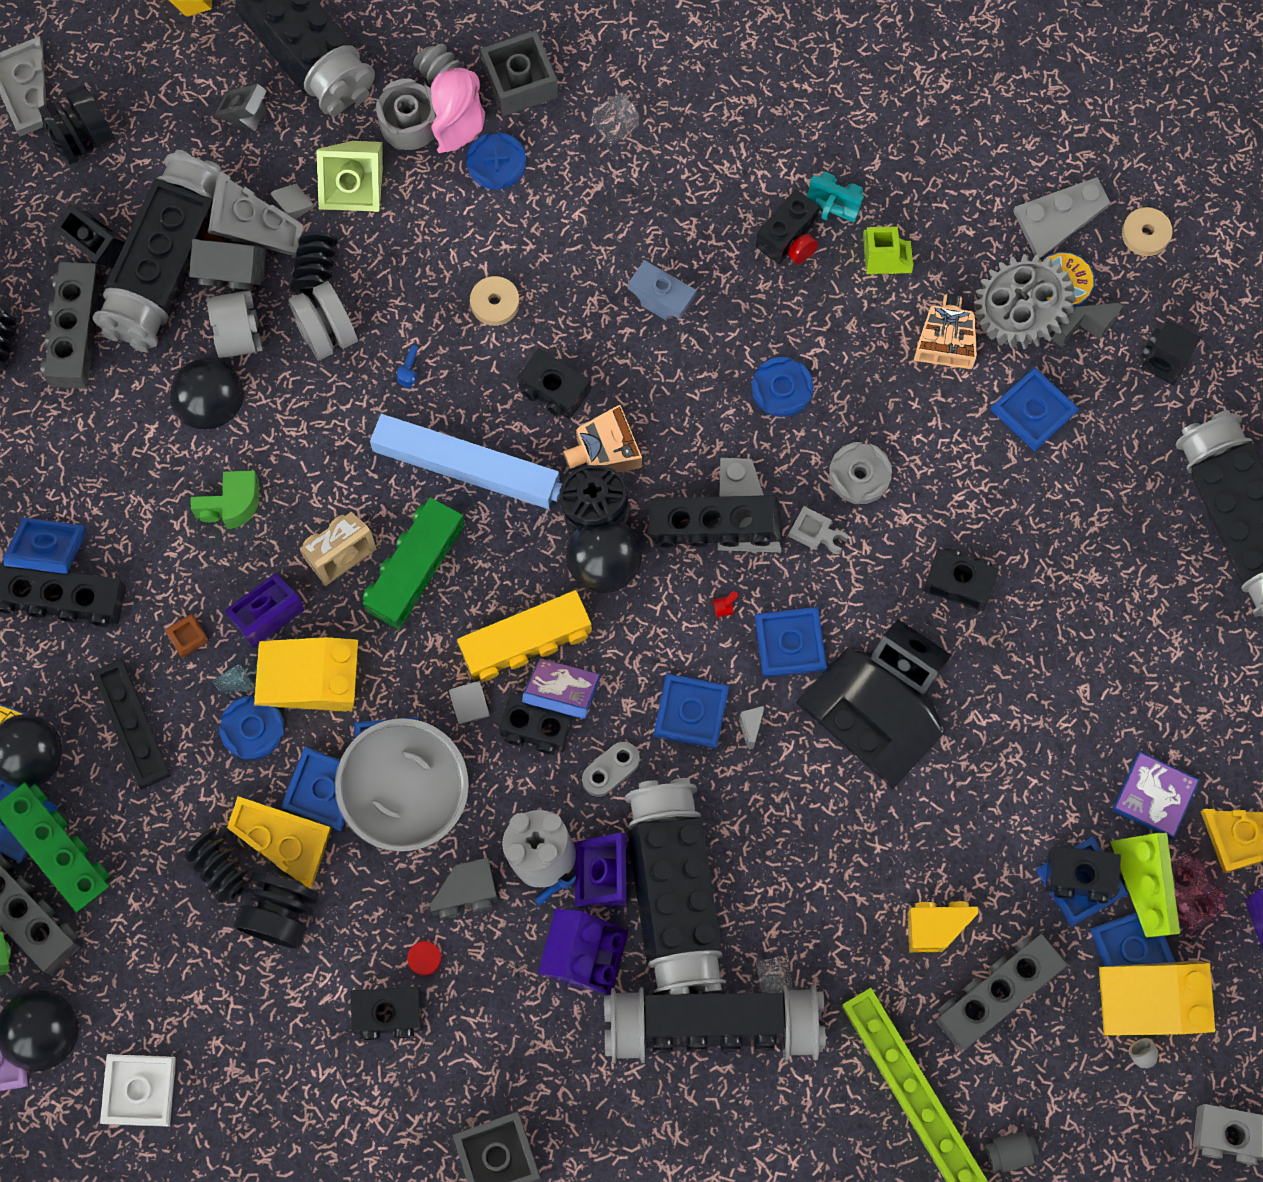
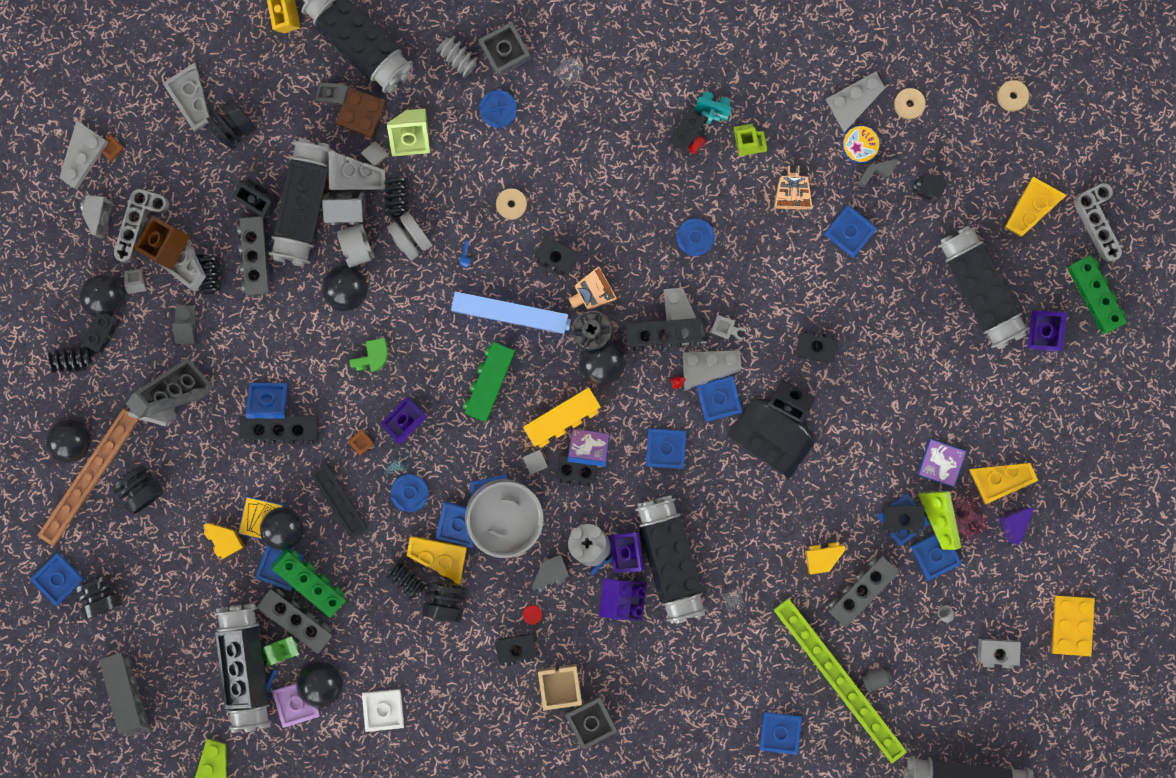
camera: 10 degrees left, 15 degrees up
(281, 137) = (361, 113): none -> reddish brown brick
(307, 673) = (437, 458): yellow slope -> none
(338, 547) = (441, 378): tan slope -> none
(406, 114) = (447, 82): light grey brick -> none
(451, 1089) = (559, 687): none -> tan piece
(456, 108) = (469, 82): bright pink piece -> none
(612, 769) = (624, 490): light grey plate -> none
(661, 291) = (614, 187): sand blue brick -> none
(714, 1021) = (700, 631): brick -> none
(750, 723) = (702, 454): light grey slope -> none
(777, 585) = (707, 366): none -> light grey wing
(867, 459) = (753, 278): light grey plate -> none
(1025, 301) = (851, 174): light grey gear -> none
(1157, 998) = (951, 583): yellow slope -> none

